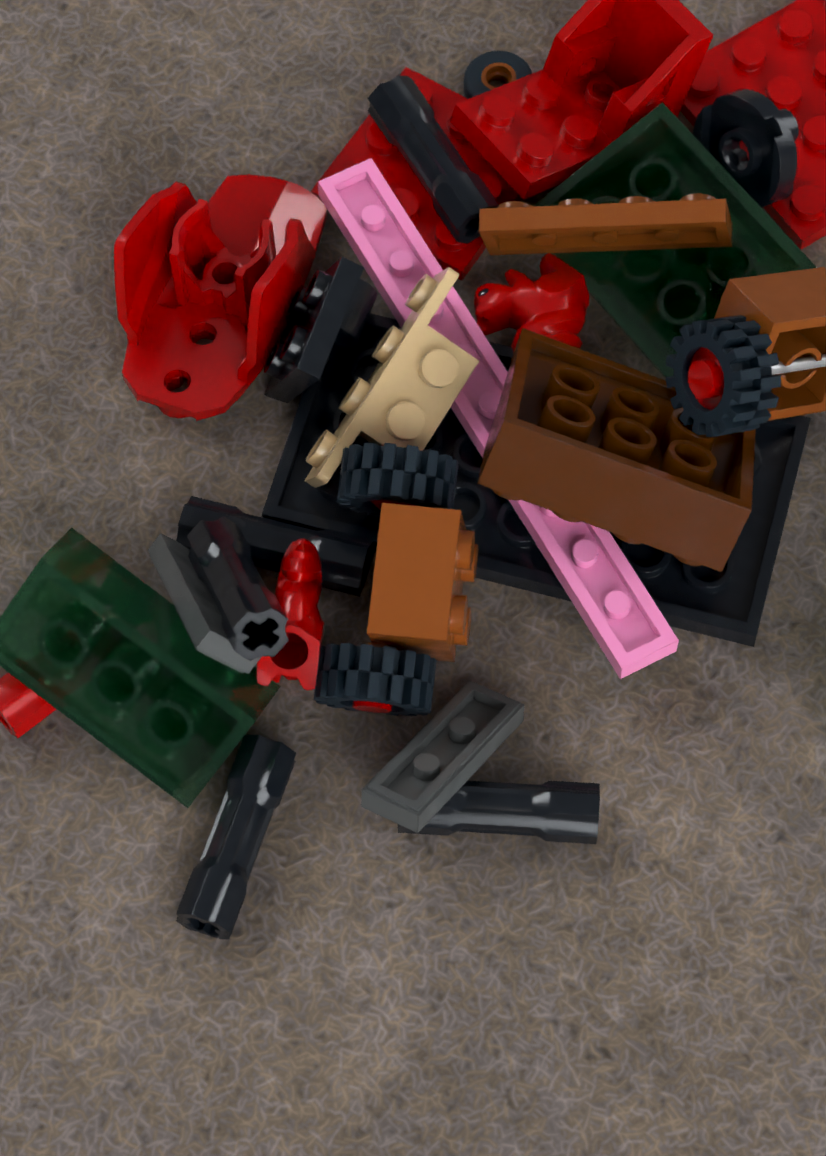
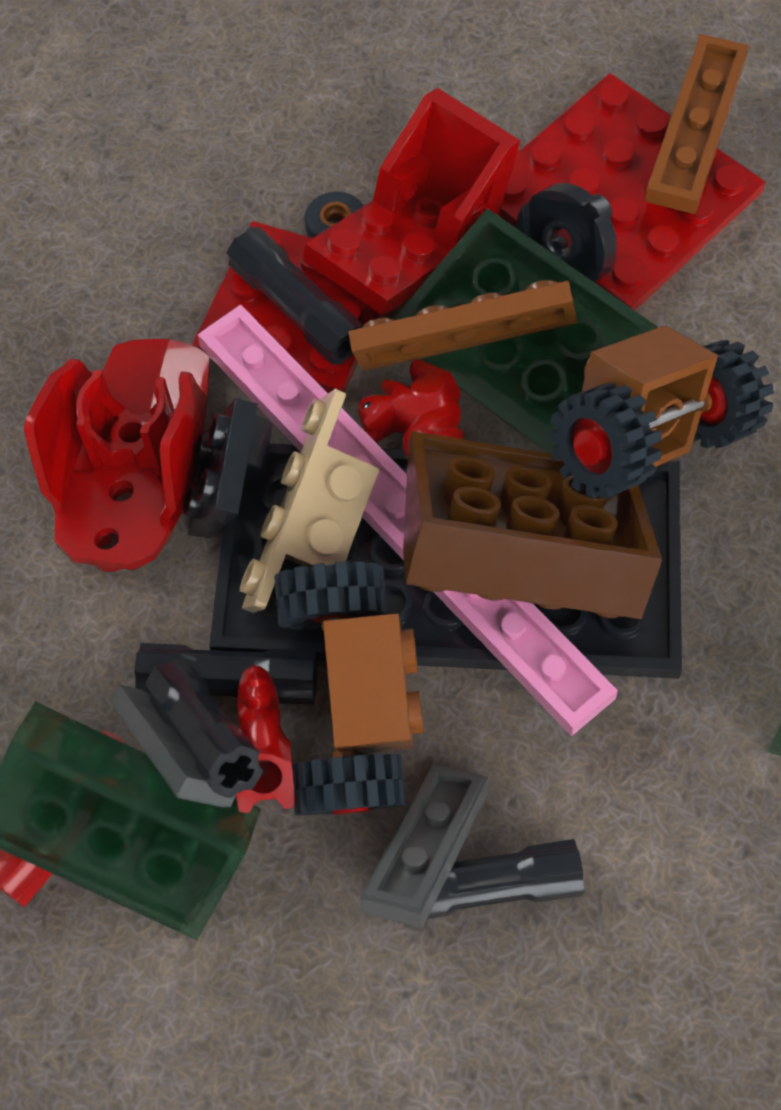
camera: 10 degrees left, 0 degrees up
(221, 876) = (243, 1000): black axle -> none

